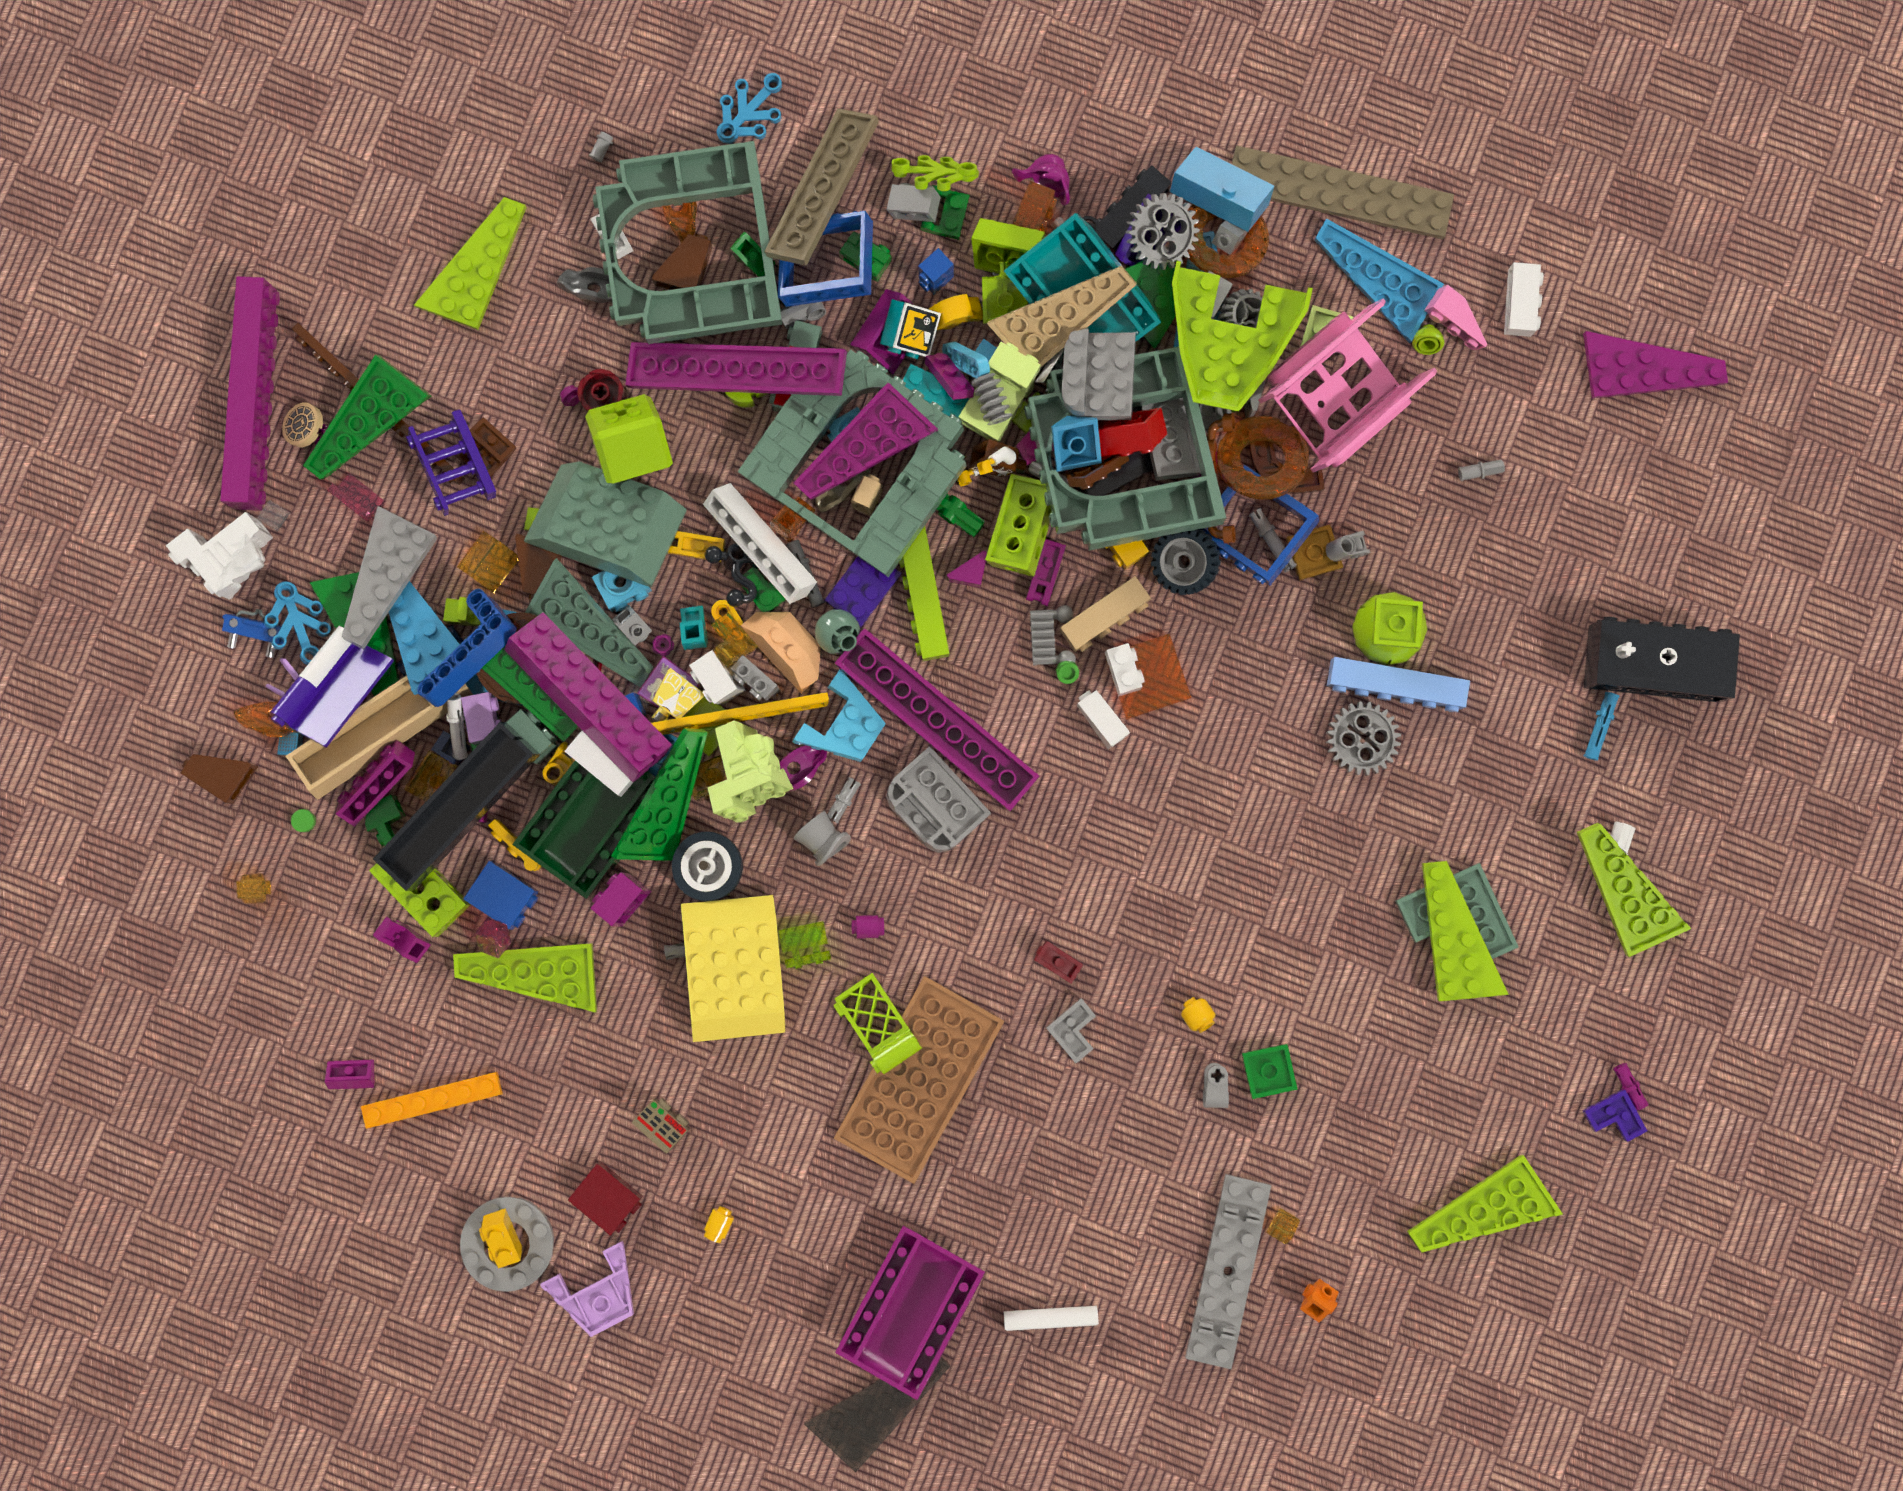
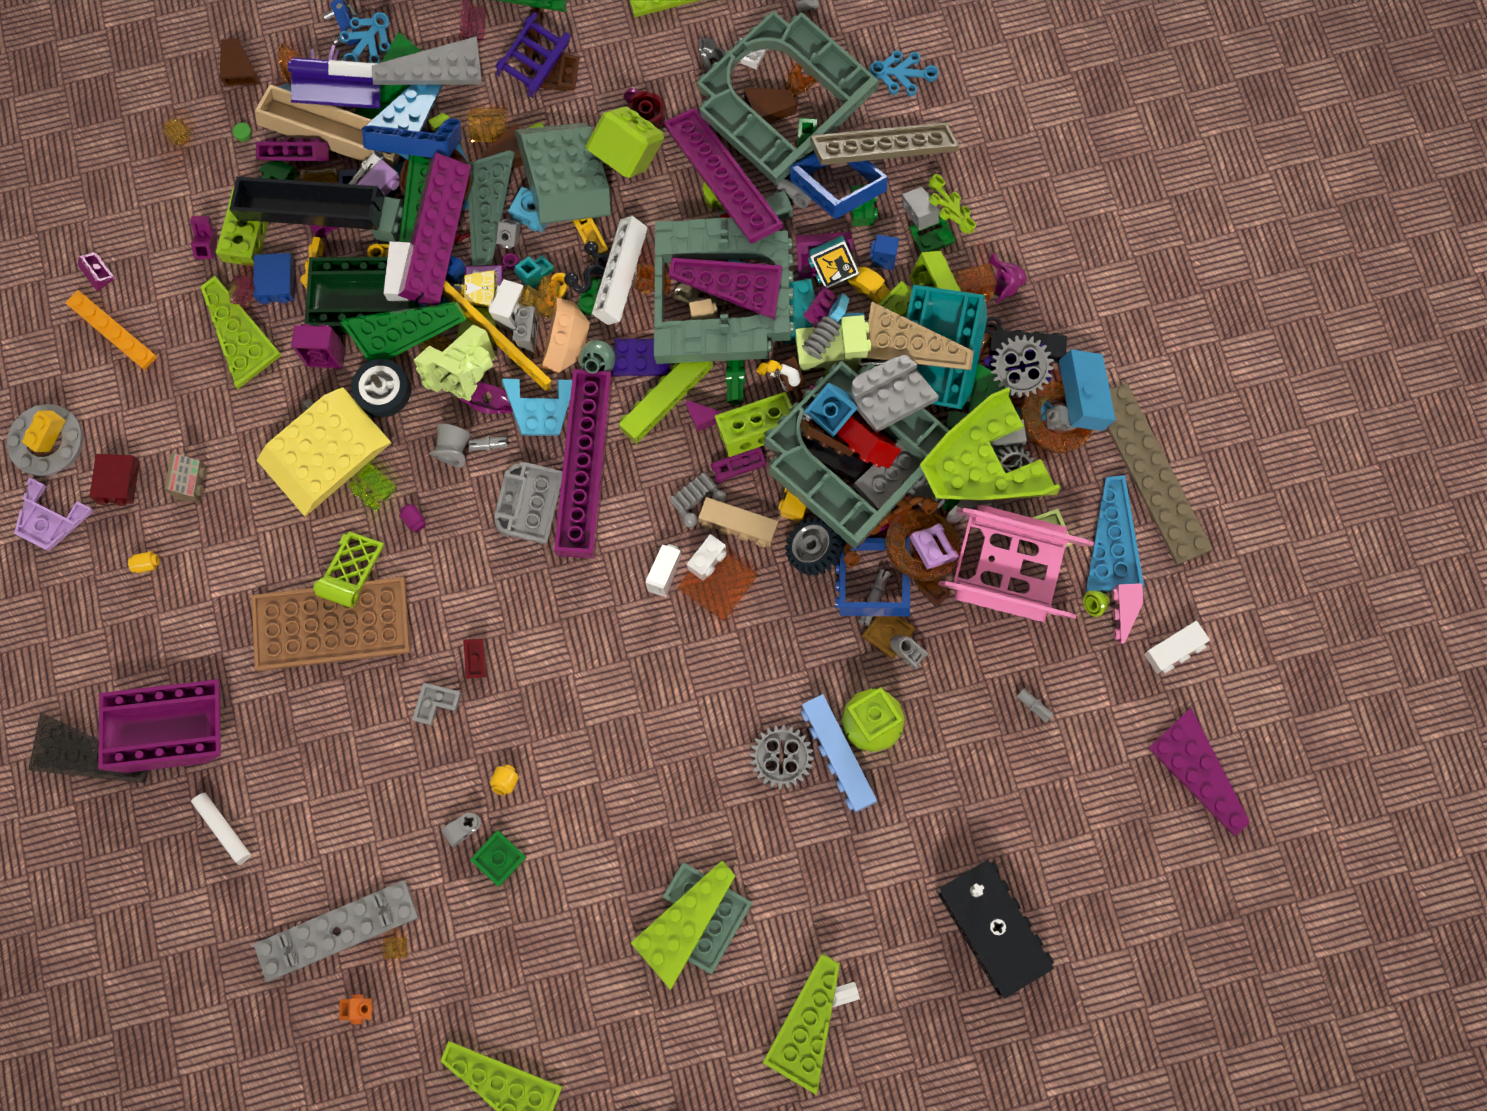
camera: 60 degrees right, 10 degrees down
(814, 597) = (629, 307): dark grey pin -> none
(1067, 672) = (680, 525): bright green tile -> none
(1274, 455) = (928, 548): none -> lavender plate
(1601, 726) = (940, 915): dark azure pin -> none

